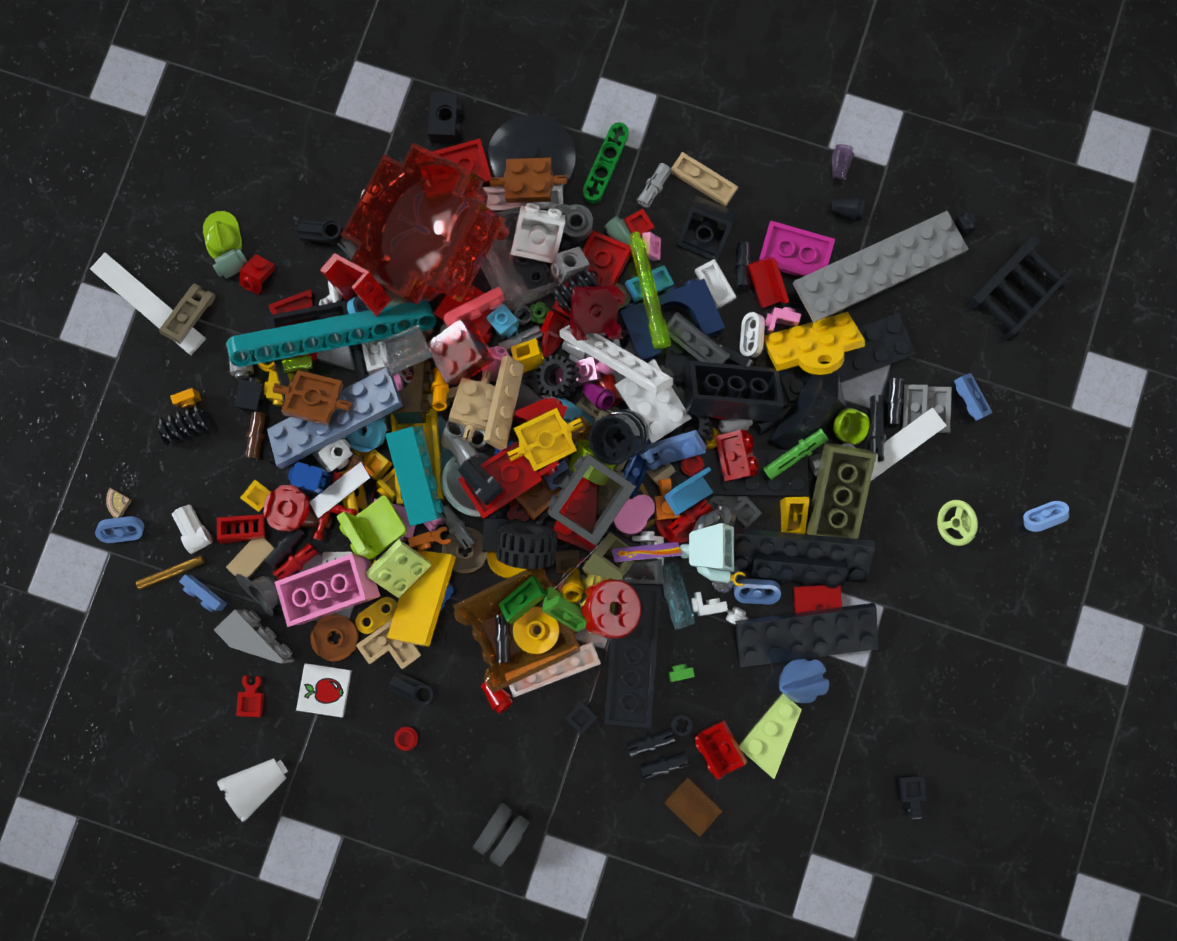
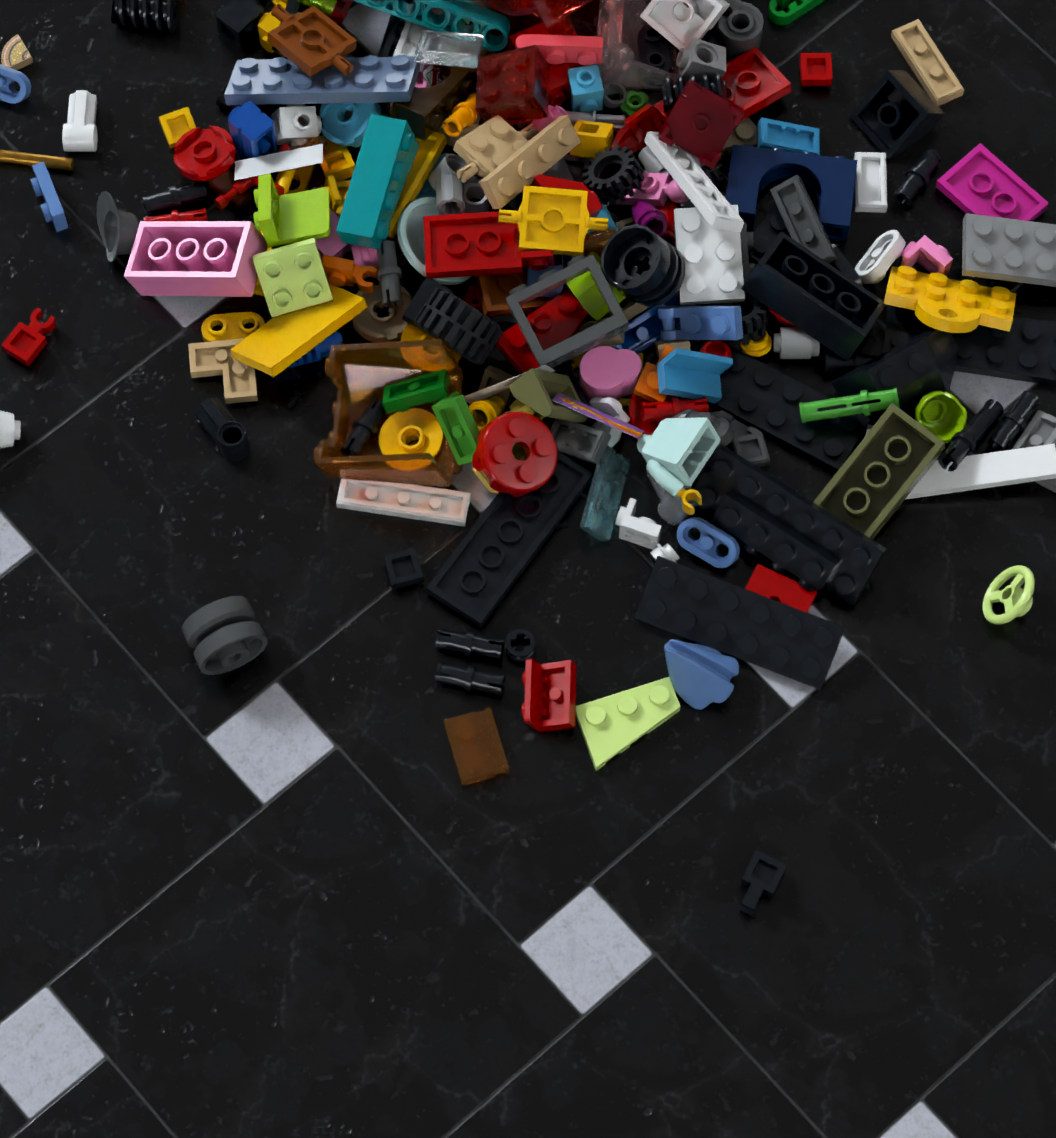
camera: 30 degrees right, 15 degrees down
(223, 522) = (132, 140): red slope -> none
(245, 633) = (75, 266): light grey slope -> none
(250, 557) = (129, 189): tan tile -> none
(255, 435) = (219, 64): reddish brown pin -> none
(323, 630) = (158, 312): dark orange plate -> none
(324, 690) = (118, 376): white tile -> none
(406, 738) = (180, 480): red plate -> none
(484, 485) = (449, 231): black piece -> none
(498, 700) = (317, 494): red cone -> none
(618, 230) = (787, 61): sand green cone -> none
(653, 245) = (814, 99): bright pink tile -> none
(654, 185) = (861, 38): light grey pin -> none
(657, 325) = (768, 177): clear neon green piece -> none
(681, 672) = (556, 583): bright green plate -> none
(737, 455) = (777, 371): red bracket -> none
(768, 282) = (933, 206): red panel -> none
(794, 514) = (811, 472): yellow slope -> none

